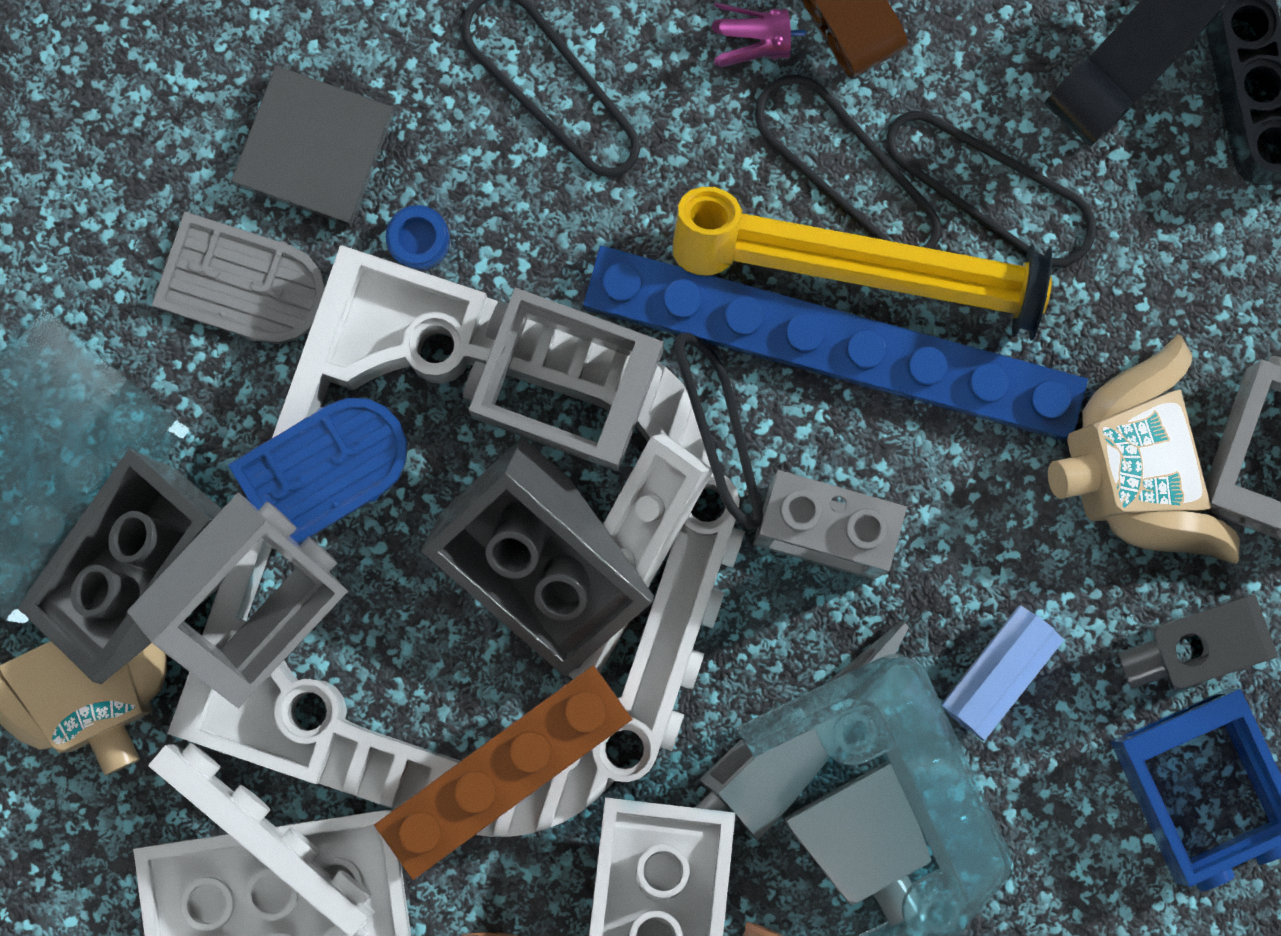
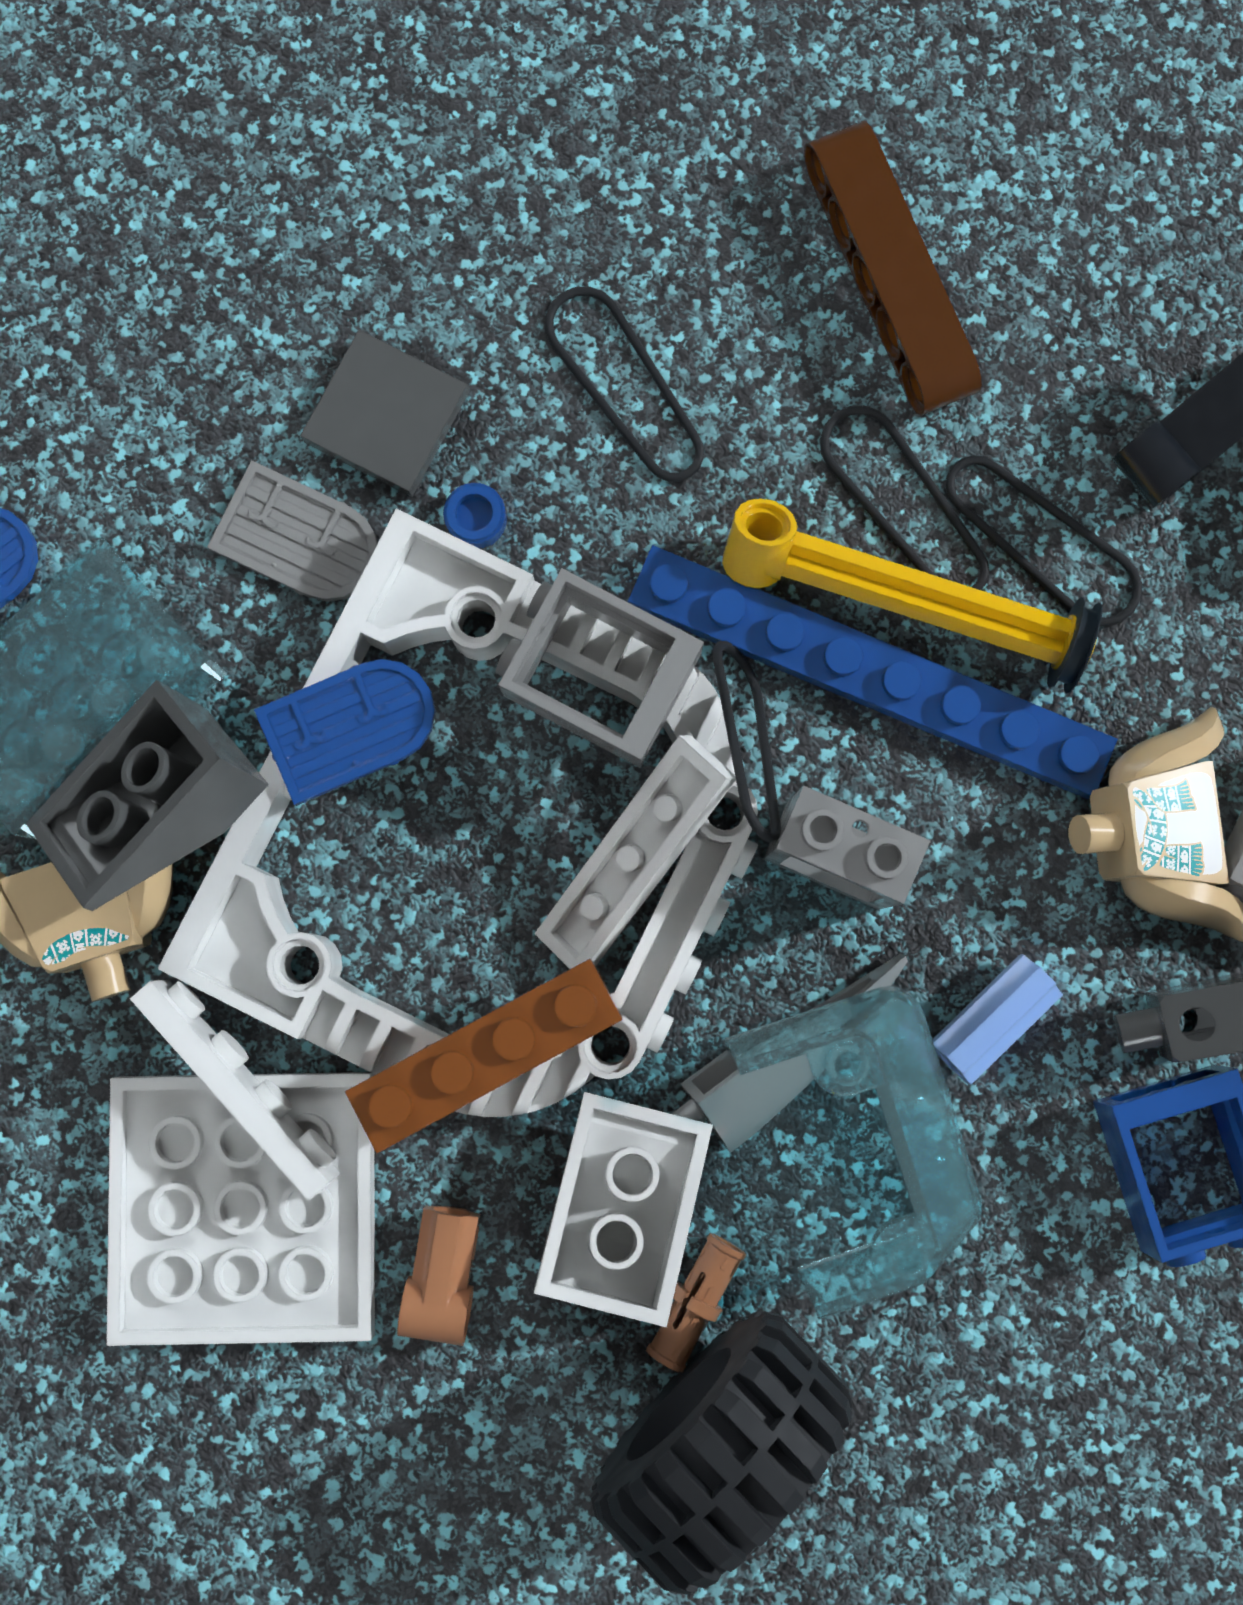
camera: 10 degrees right, 0 degrees up
(271, 630) = (270, 883): light grey window -> none
(538, 558) = (549, 844): dark grey slope -> none
(771, 28) = (846, 355): flat silver piece -> none
(864, 839) = (839, 1167): light grey torso -> none

